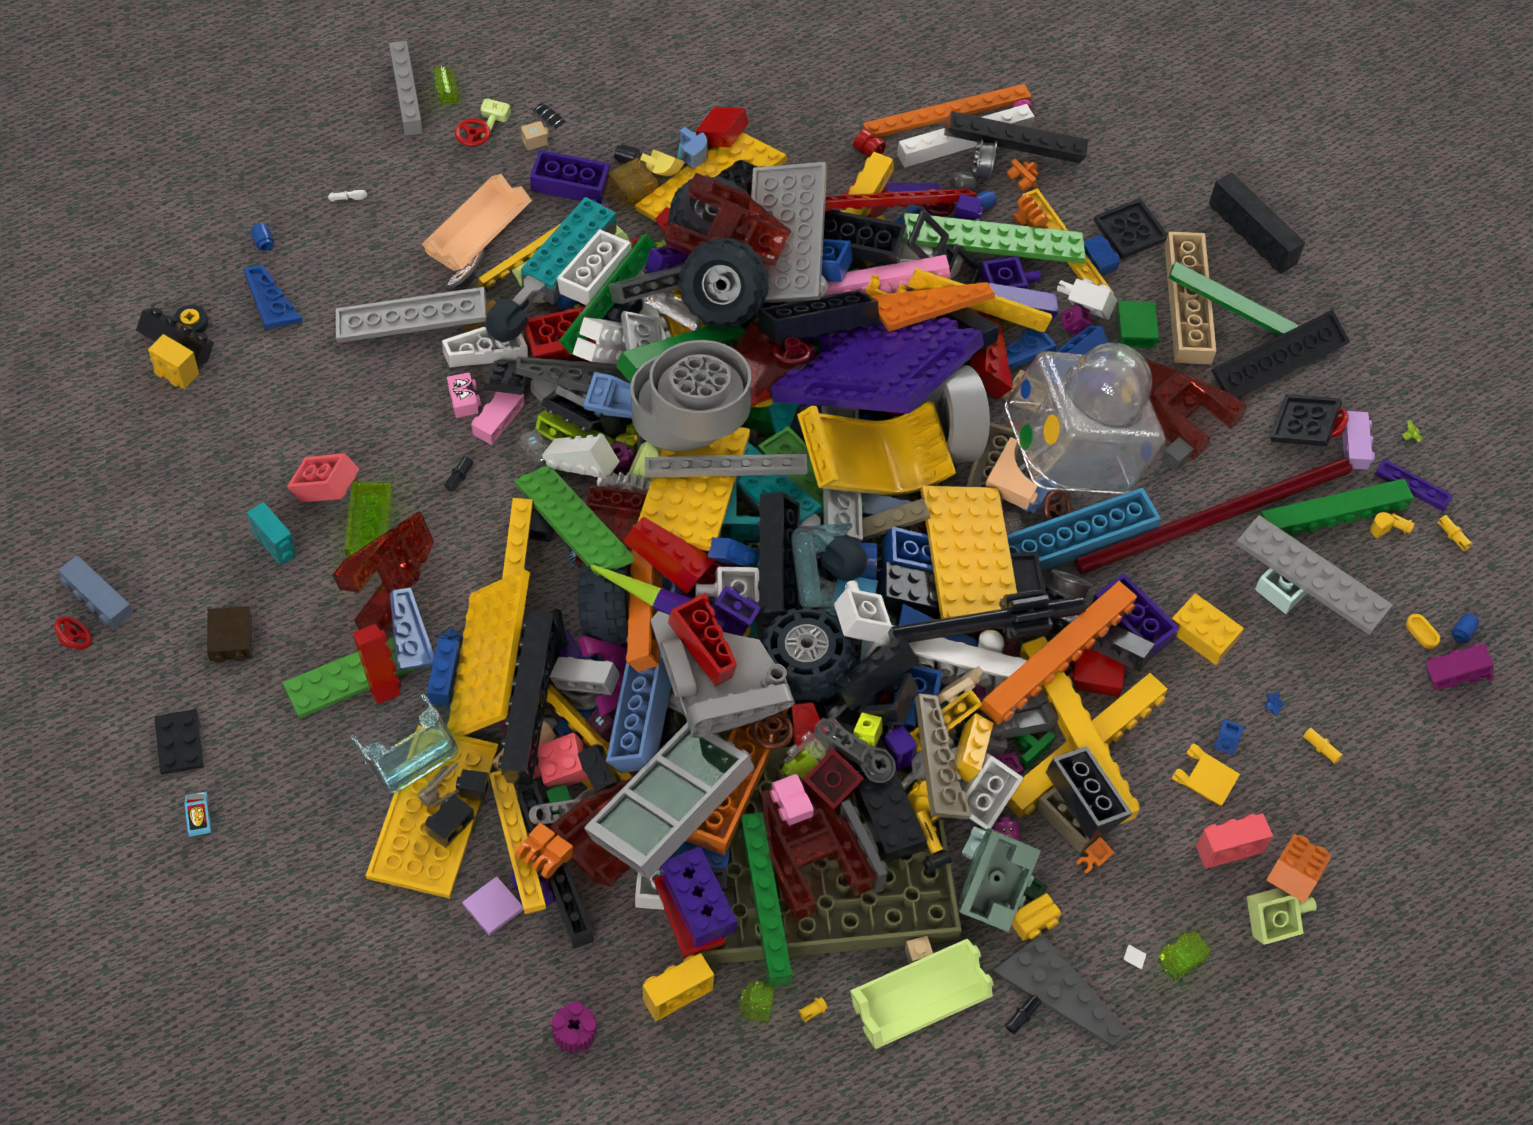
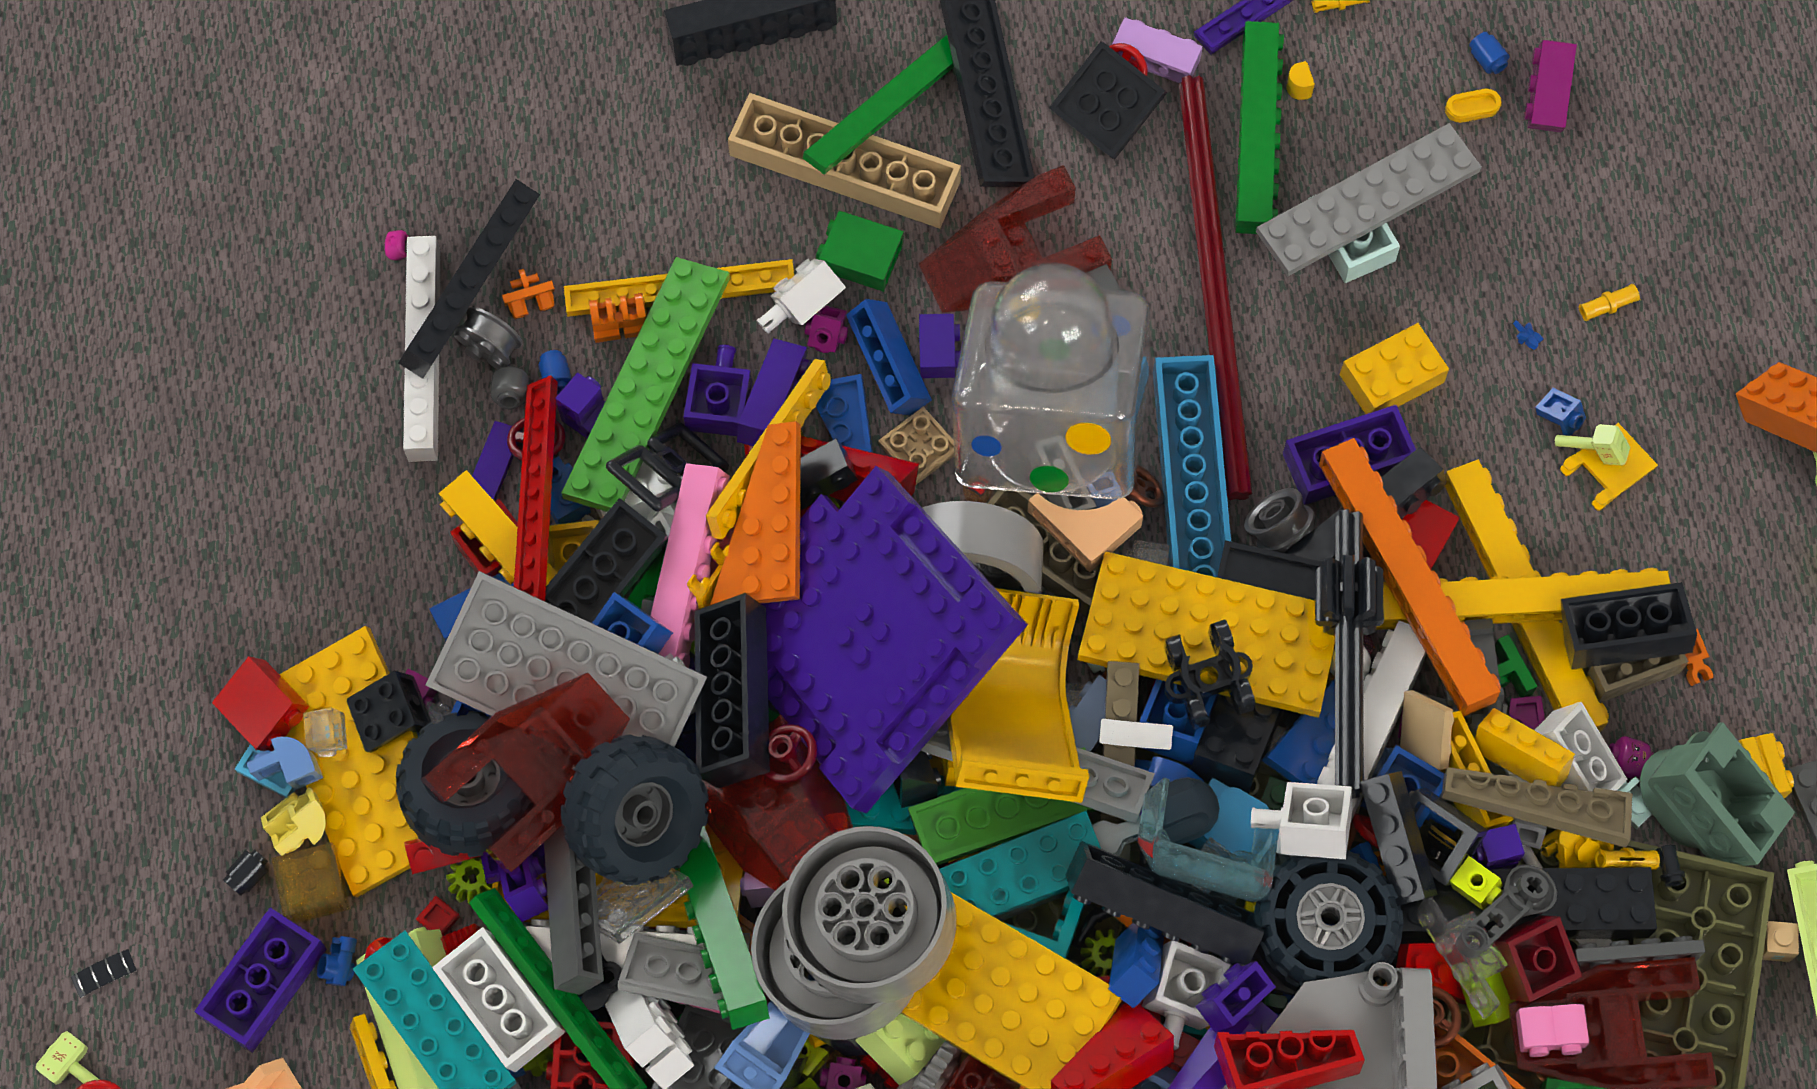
camera: 65 degrees left, 10 degrees up
(534, 135) = (144, 1009): tan brick -> none
(717, 155) = (325, 731): none -> clear brick
(726, 465) = (981, 926): light grey plate -> none
(867, 143) = (382, 494): red wheel -> none
(884, 525) = (1136, 734): none -> white sticker
(934, 548) = (1227, 680): none -> black piece
(940, 112) = (356, 359): orange plate -> none
(1101, 255) = (720, 247): blue brick -> none
(1130, 228) = (685, 188): black plate -> none
(1216, 761) = (1607, 442): none -> yellowish green piece
(1234, 840) = (1727, 471): coral brick -> none
(1403, 524) = (1310, 52): yellow pin -> none

